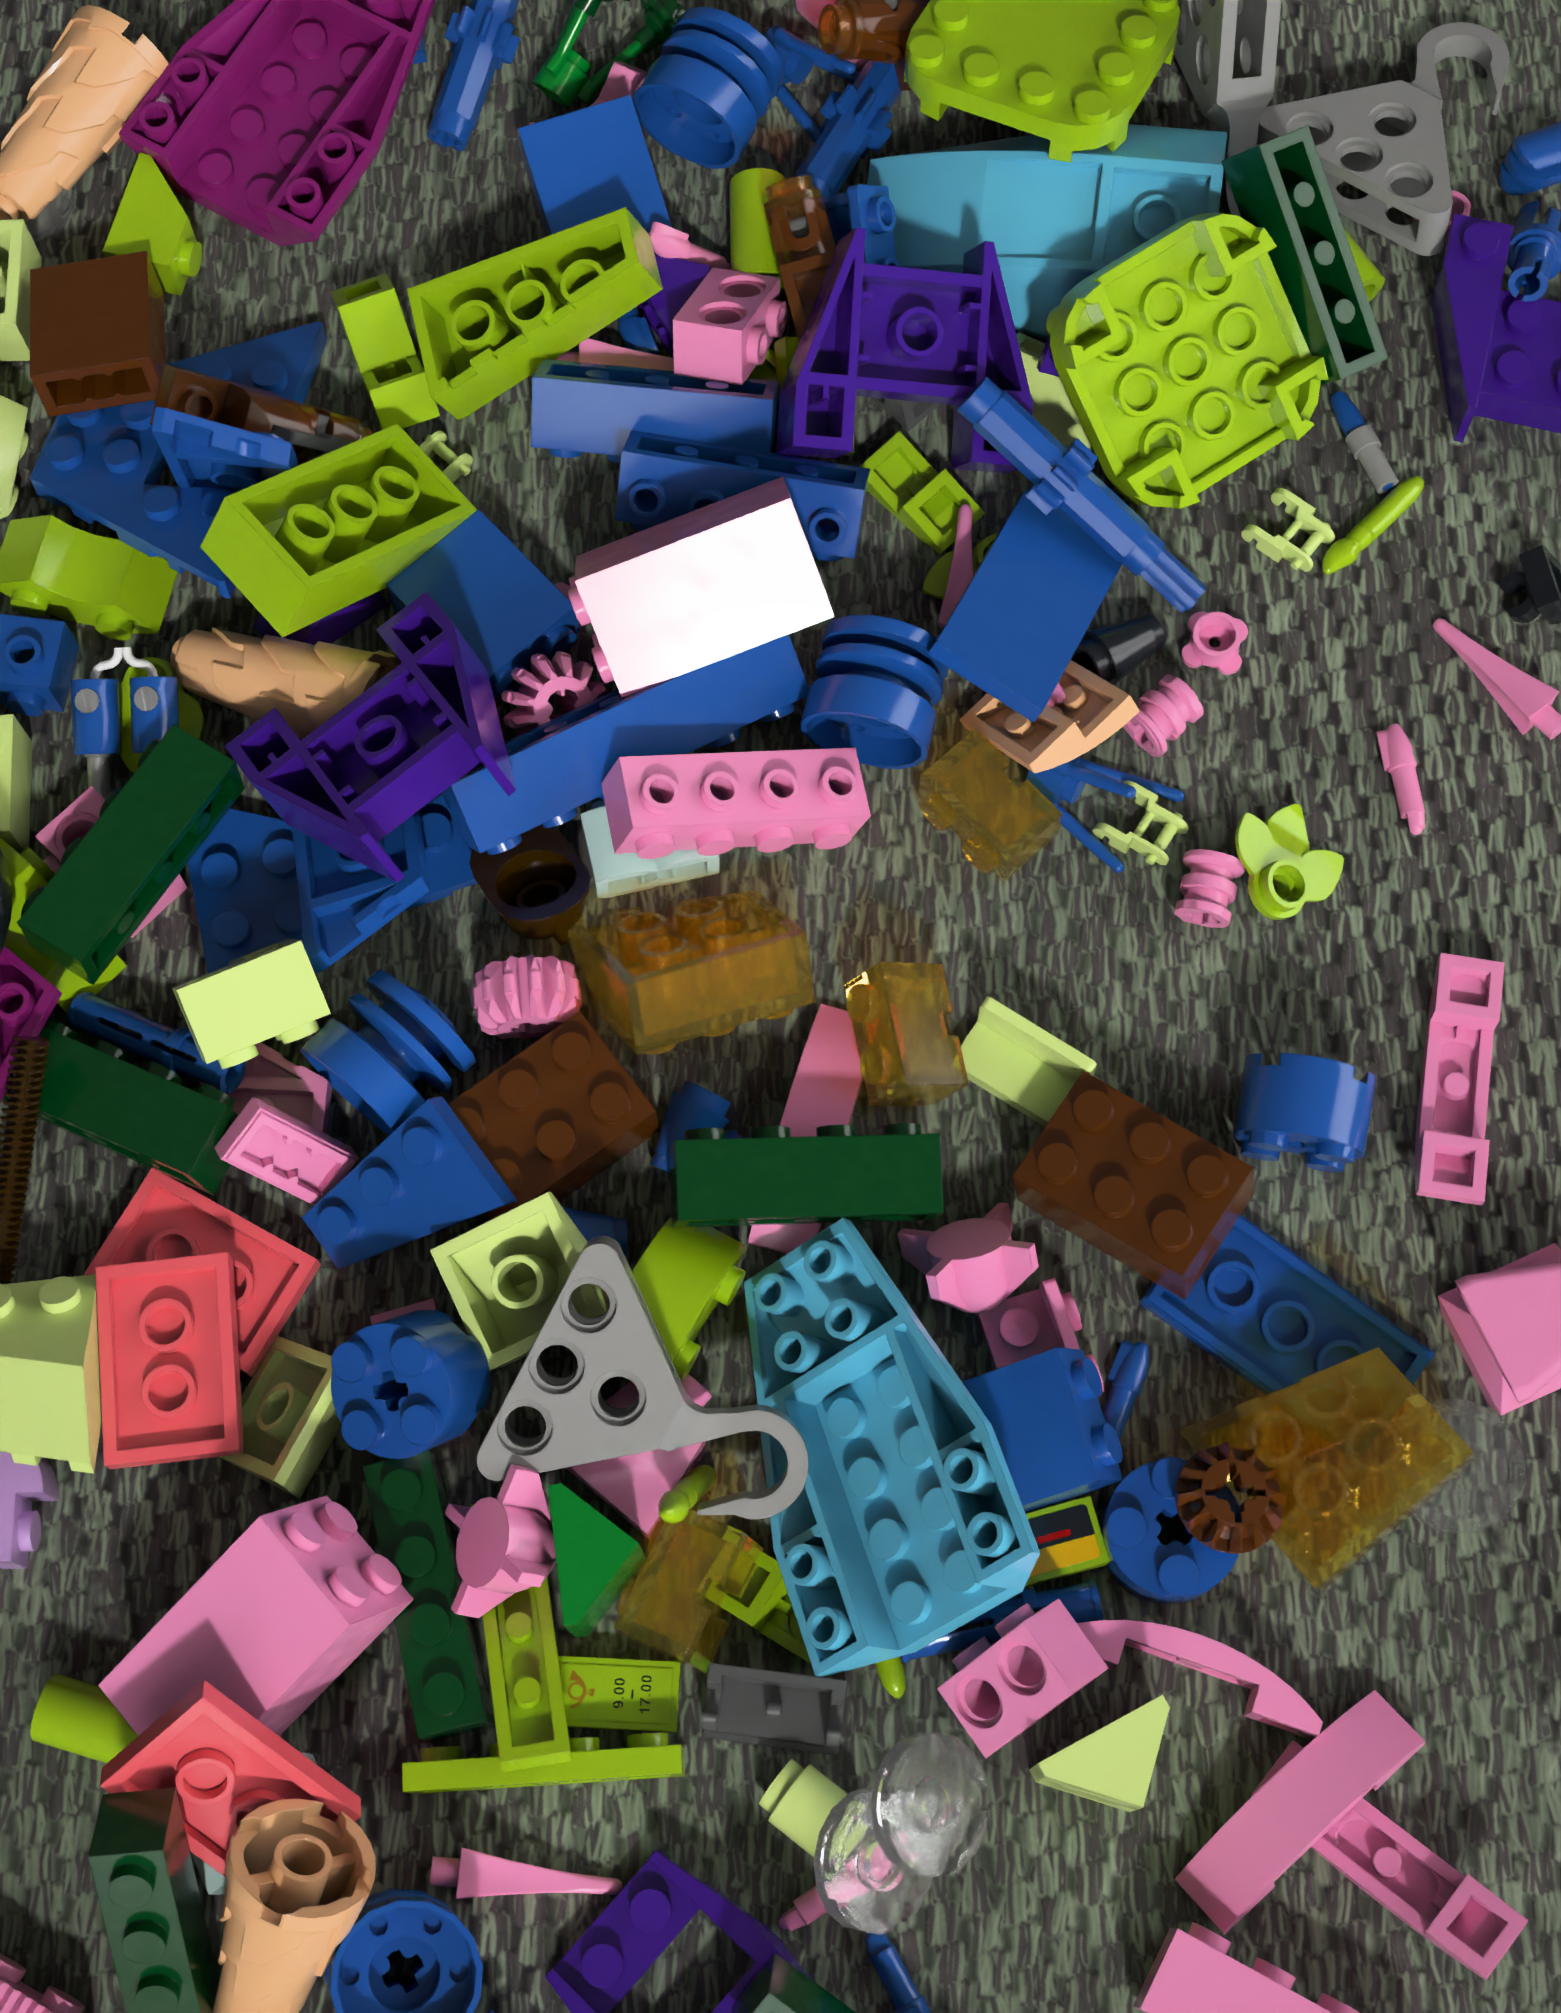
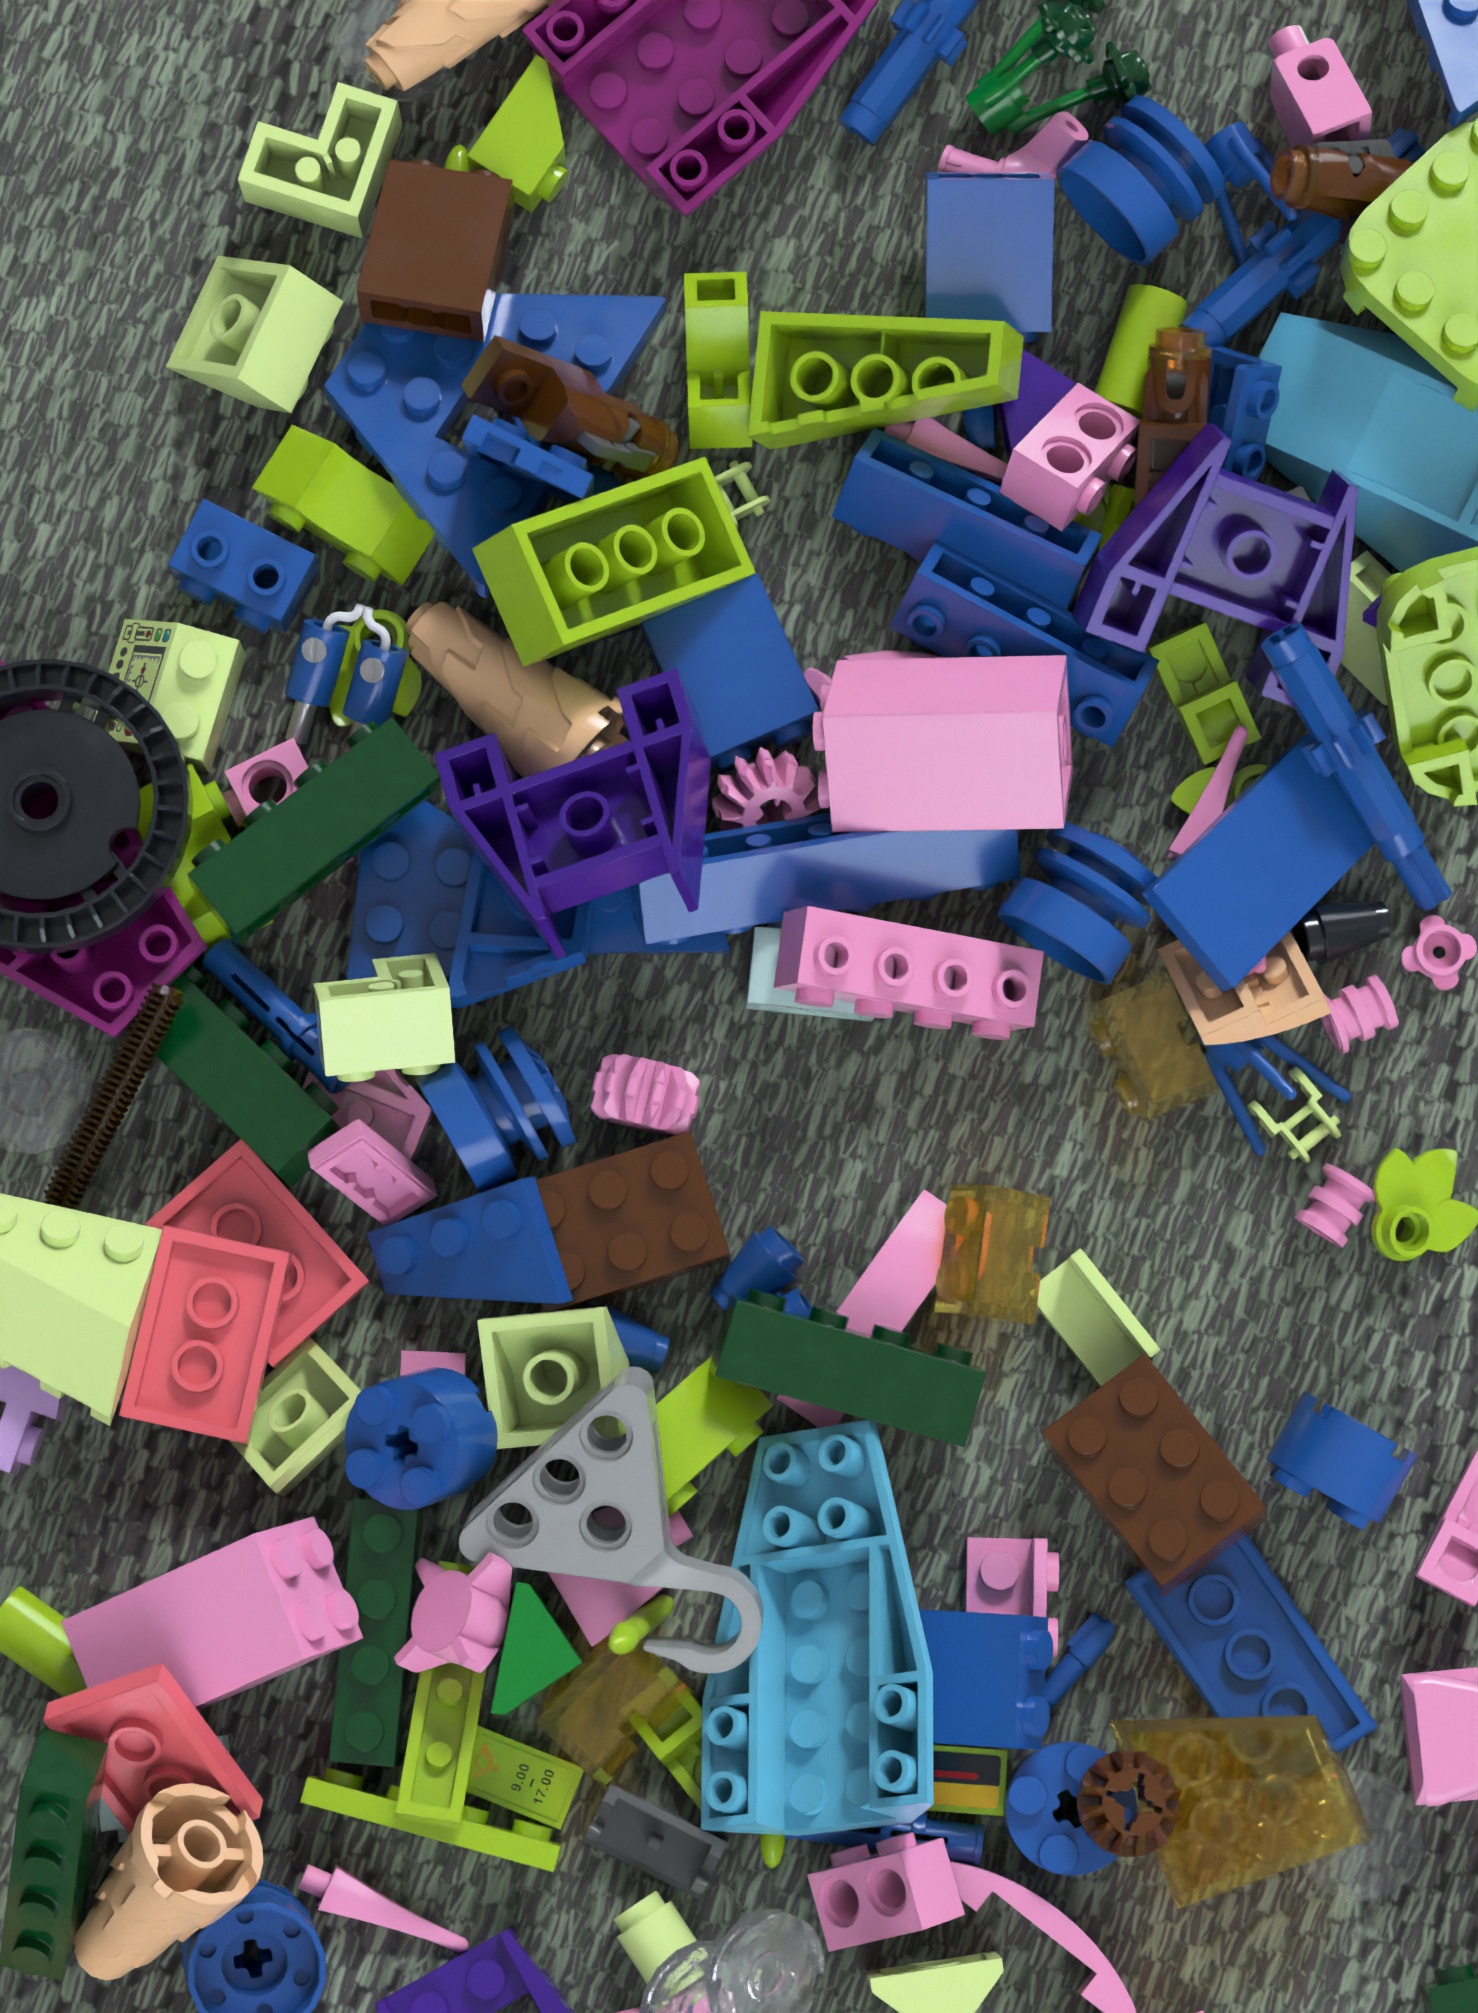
camera: 15 degrees right, 10 degrees up
(535, 884) = (690, 985): dark brown piece -> none
(675, 244) = (1049, 348): bright pink piece -> none
(695, 973) = (811, 1117): clear yellow wedge -> none
(971, 1260) = (977, 1492): bright pink piece -> none

